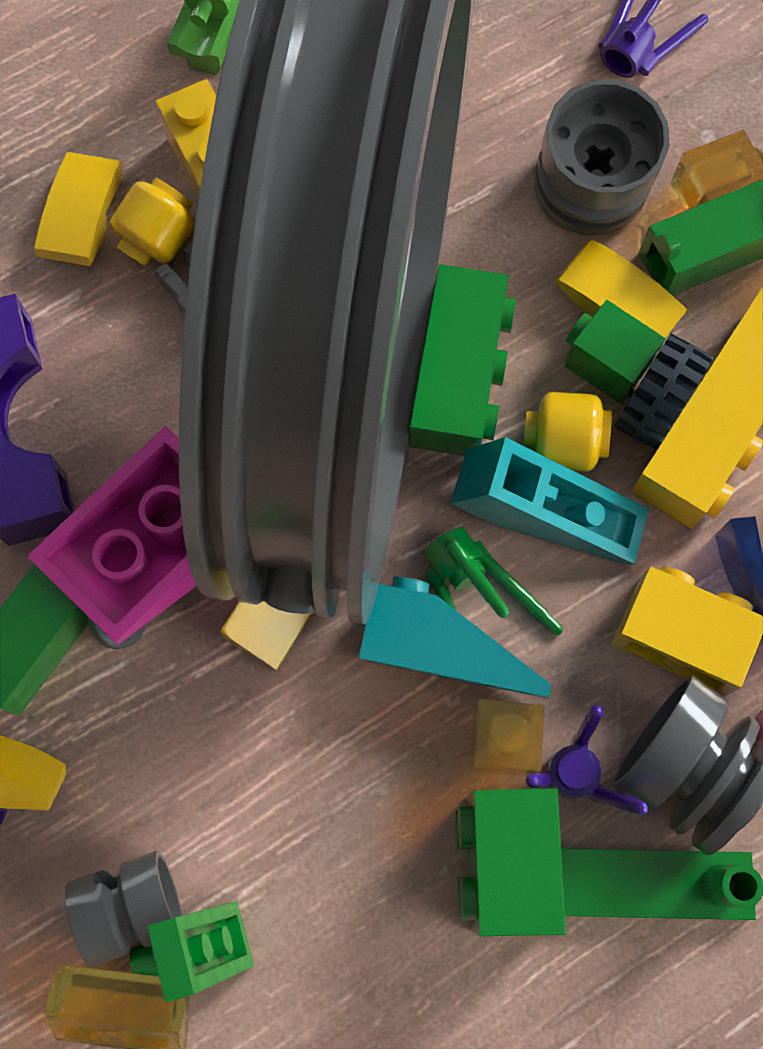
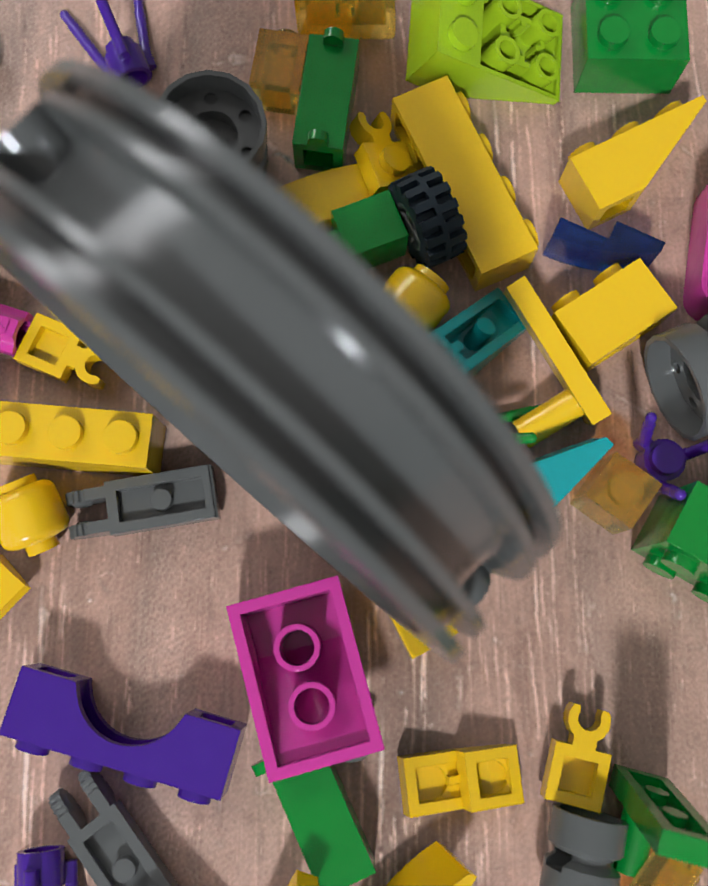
camera: 60 degrees left, 5 degrees up
(135, 752) = (460, 779): none -> yellow slope
(208, 857) = (575, 769): none -> yellow plate
(587, 645) = (579, 394): none -> yellow piece
(701, 314) = (378, 156): none -> yellow plate

